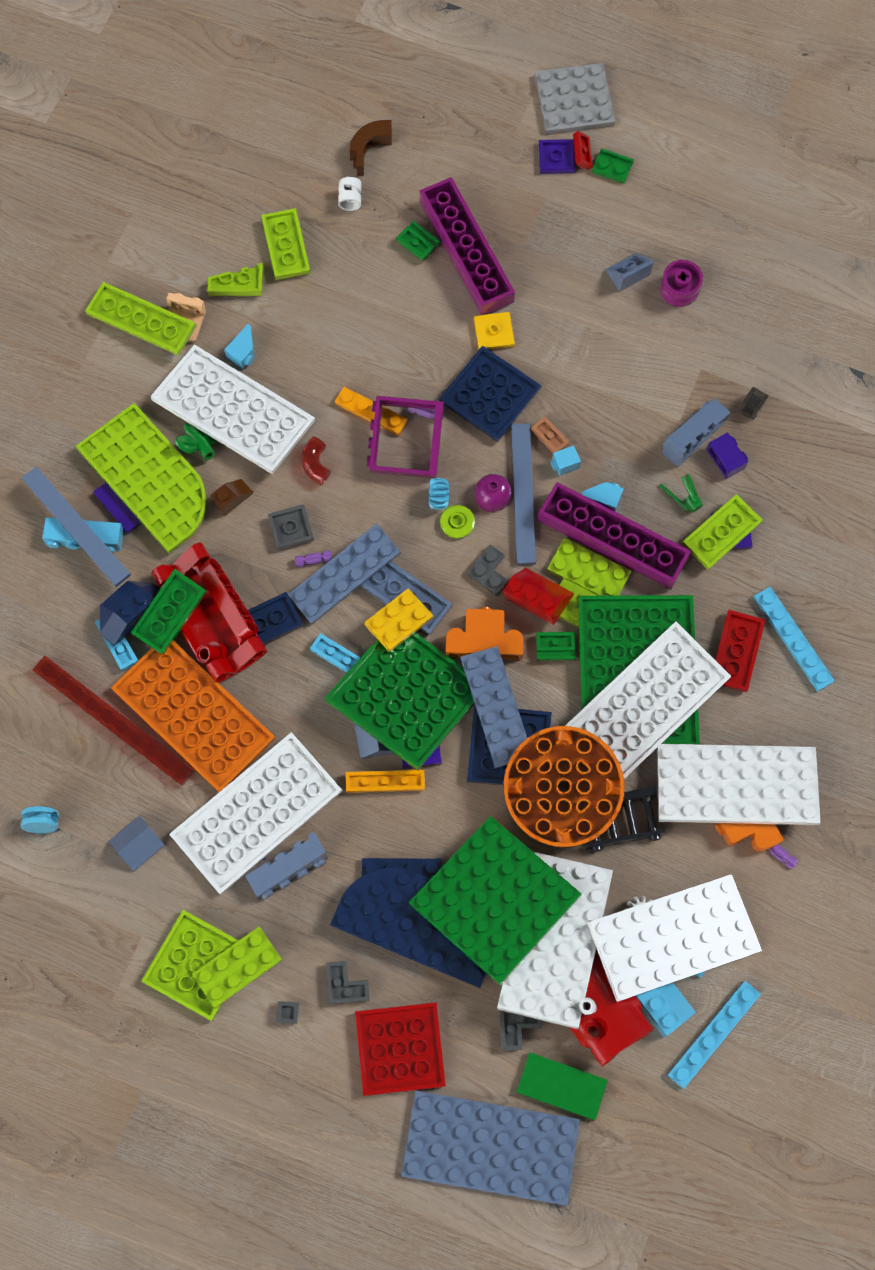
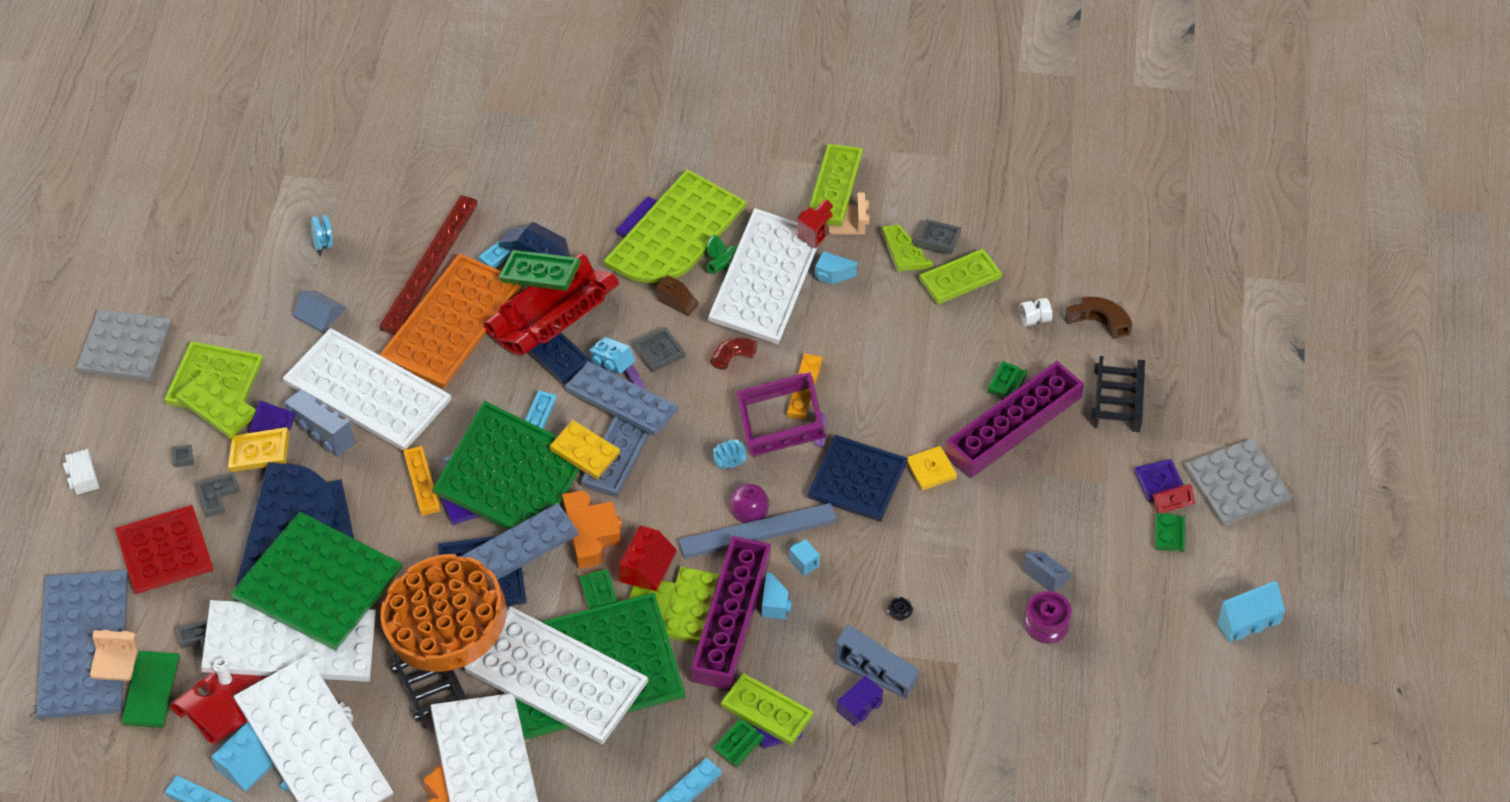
camera: 75 degrees right, 20 degrees down
(56, 535) = (603, 198): medium azure brick -> none
(76, 526) = (604, 186): sand blue tile -> none
(119, 1054) = (124, 345): none -> light grey plate
(200, 346) = (813, 223): none -> red brick
(234, 247) = (939, 236): none -> dark grey plate
(278, 914) = (271, 417): none -> dark purple tile
(280, 1121) = (81, 471): none -> white brick
(291, 570) = (612, 355): none -> medium azure brick
(306, 932) = (258, 449): none -> yellow plate
(457, 521) = (708, 481): lime wheel -> none
(463, 141) = (1135, 402): none -> black fence
(484, 571) = (667, 515): dark grey plate -> none
(529, 1116) = (114, 655): none -> light nougat bracket
(549, 435) = (829, 538): nougat plate -> none
(640, 392) = (900, 603): none -> black plate
(693, 501) = (795, 679): green plant -> none
(716, 130) = (1251, 612): none -> medium azure slope
(739, 648) = (640, 753): red plate -> none
(747, 565) = (738, 743): none -> green plate
(753, 403) = (930, 714): clear smoke brick -> none

